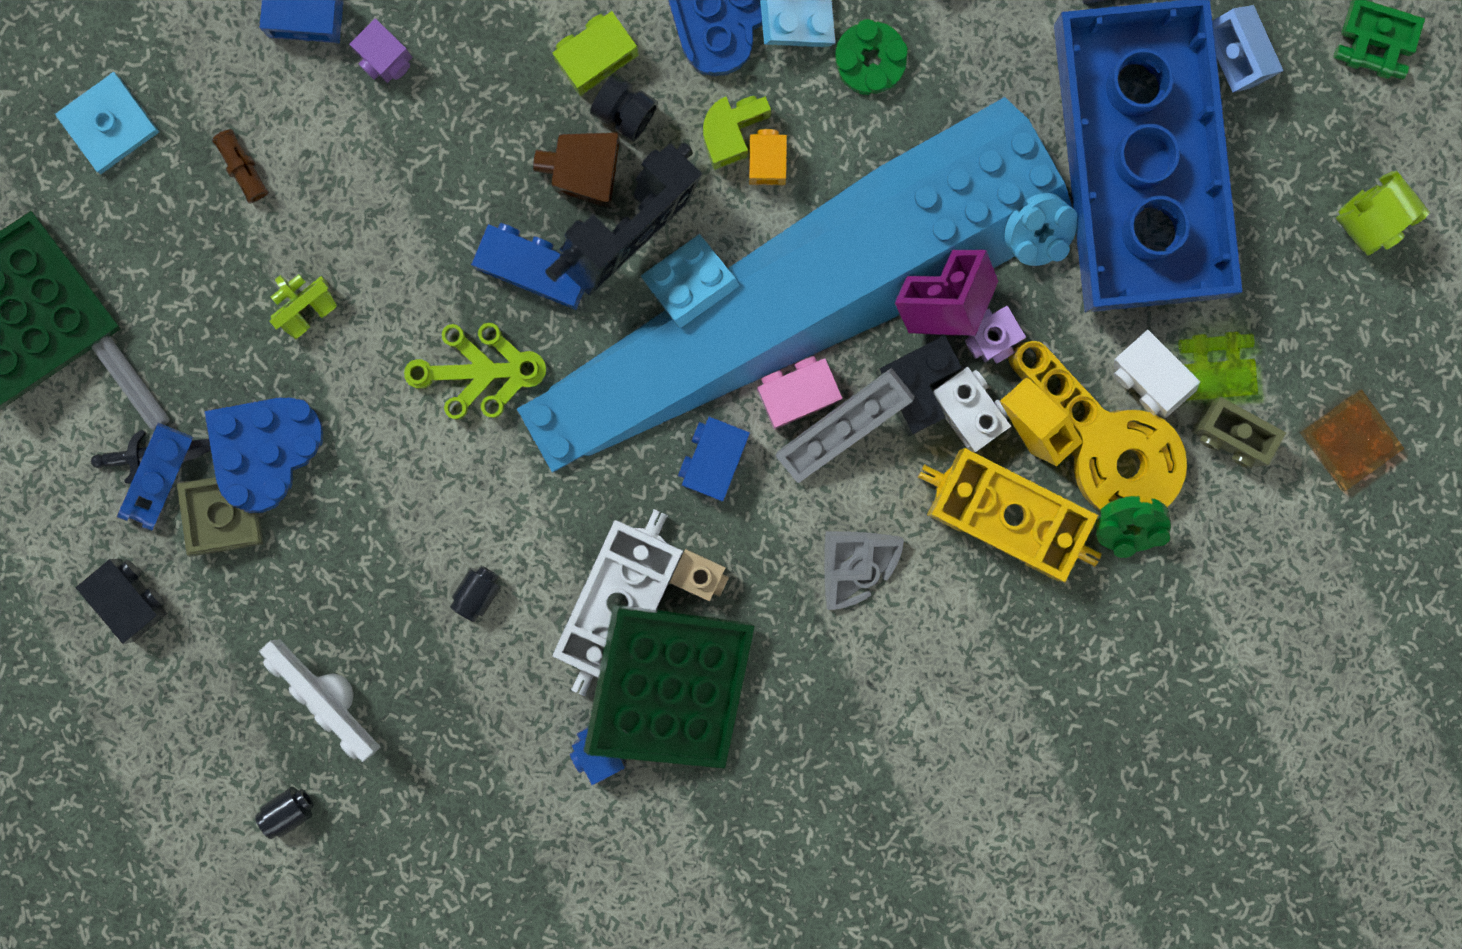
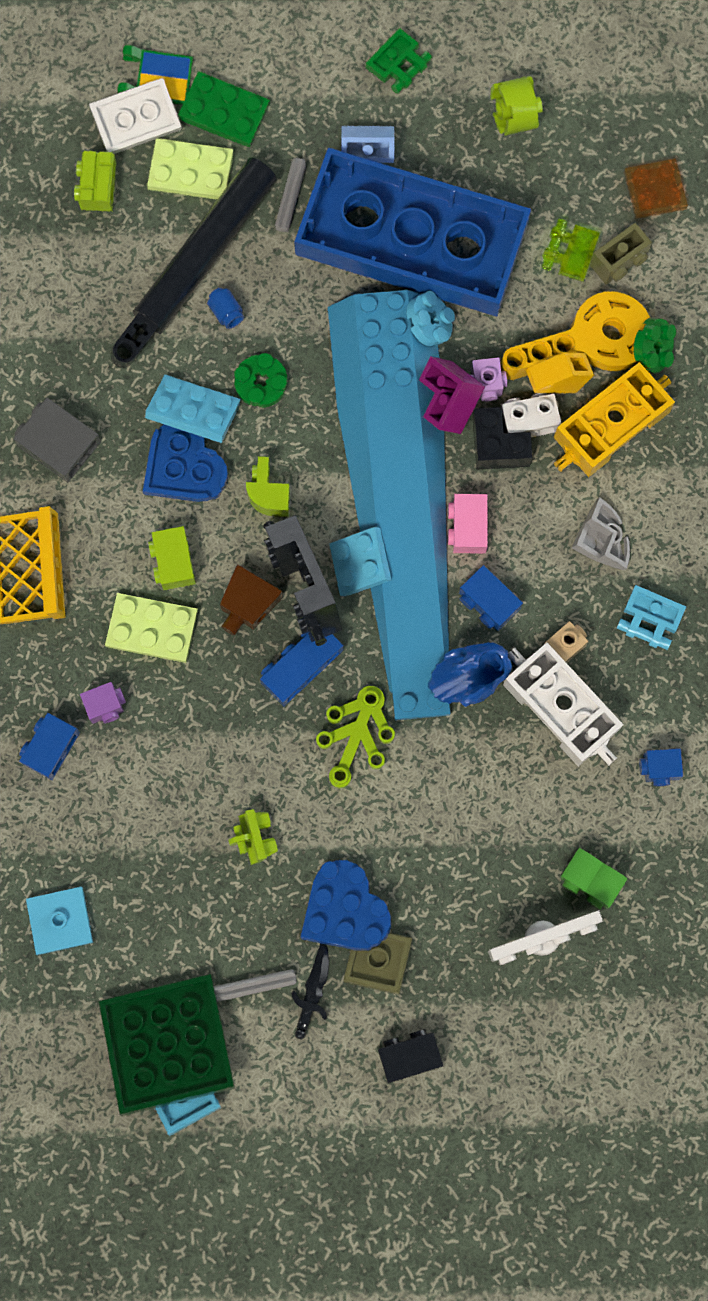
camera: 65 degrees left, 10 degrees down
(155, 475) = (330, 994): blue plate -> none
(240, 166) = (135, 838): reddish brown pin -> none
(284, 812) = (613, 1005): black brick -> none
(424, 727) = (593, 879): none -> bright green brick
(475, 593) = (512, 802): black brick -> none
(501, 68) = (151, 627): none -> yellowish green plate
(604, 475) = (470, 673): none -> blue hair
(622, 106) = (220, 554): black wheel -> none
(668, 687) = (637, 692): dark green plate -> none
(767, 158) = (299, 475): light orange brick -> none
(791, 666) = (655, 610): none -> medium azure plate
(845, 425) = (506, 500): light grey plate -> none
(1154, 375) = (560, 289): white brick -> none

